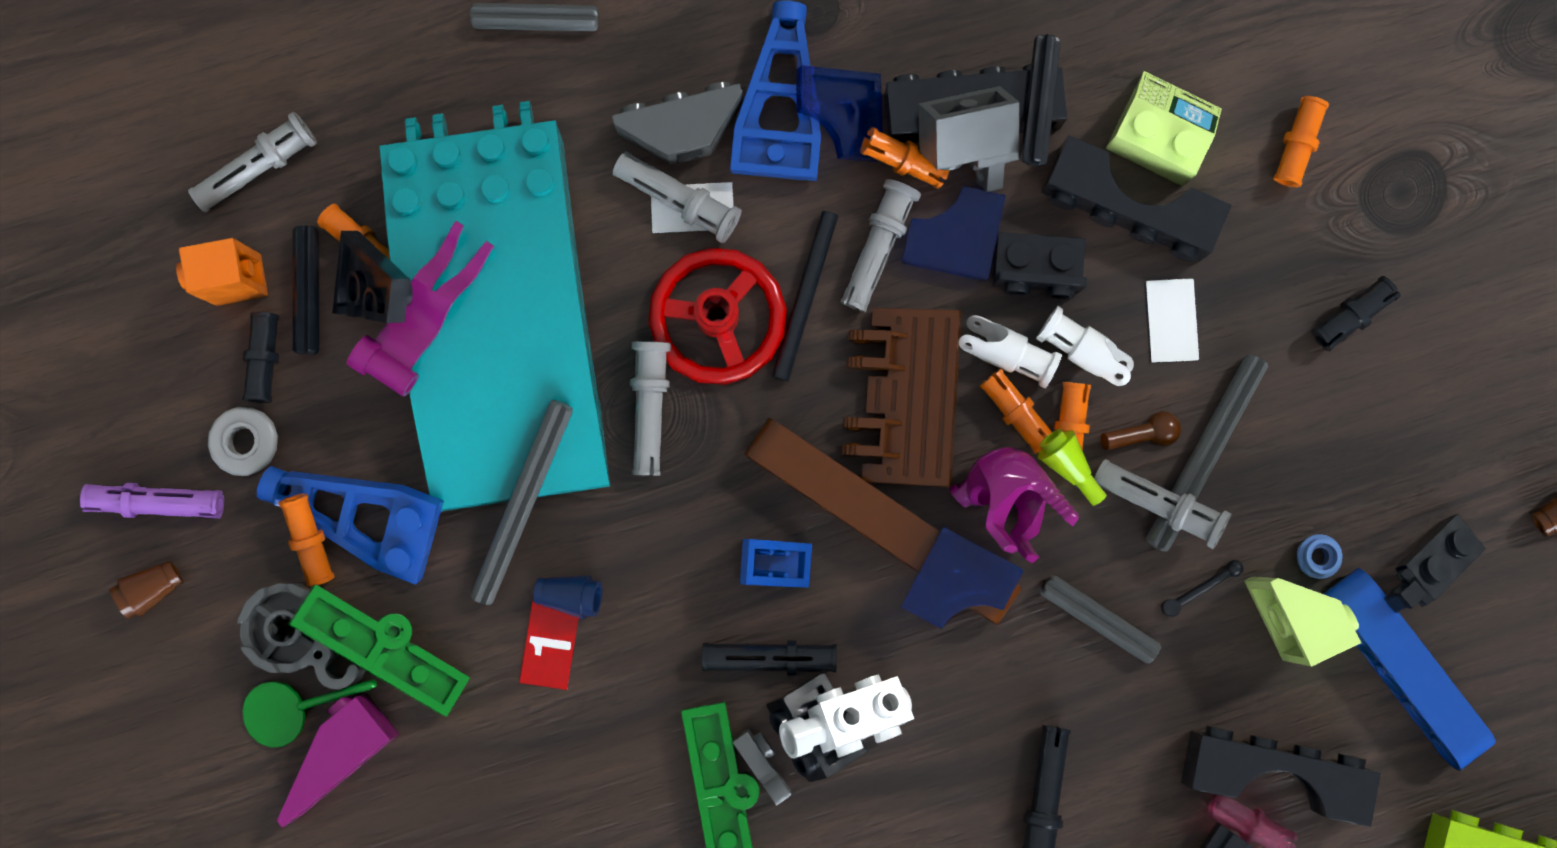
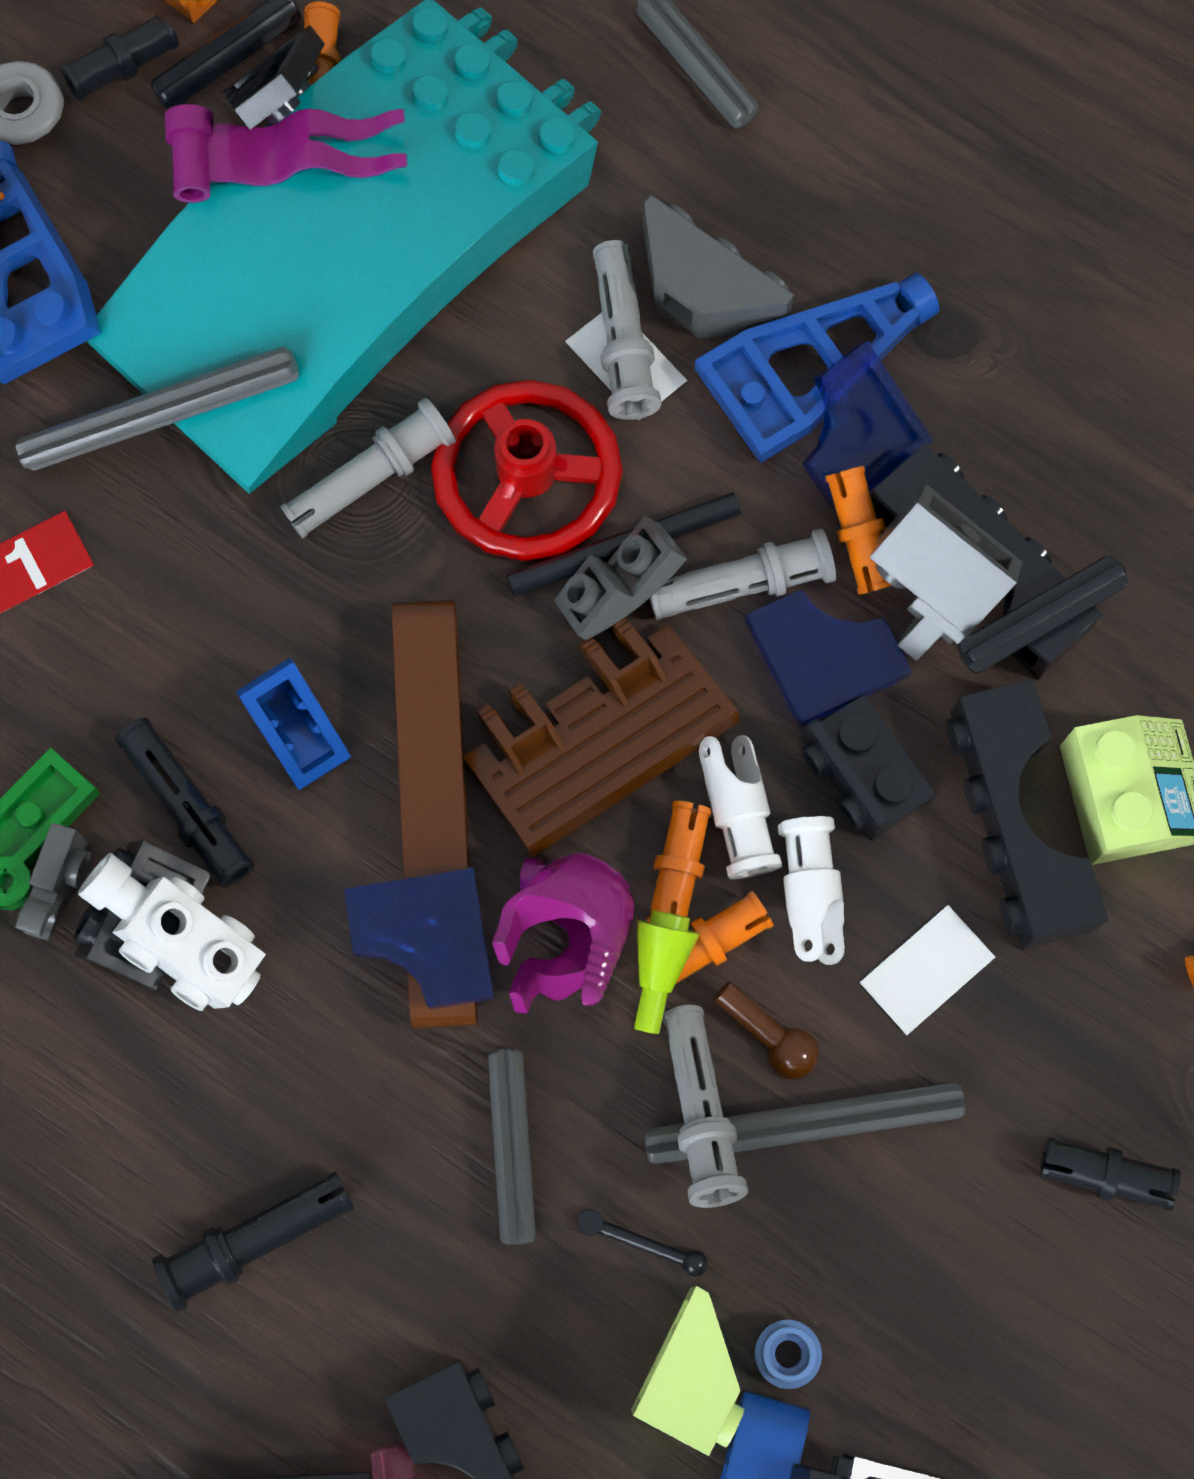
camera: 55 degrees right, 10 degrees down
(571, 595) = (96, 540): dark blue cone -> none
(831, 317) = (611, 590): none -> dark grey slope

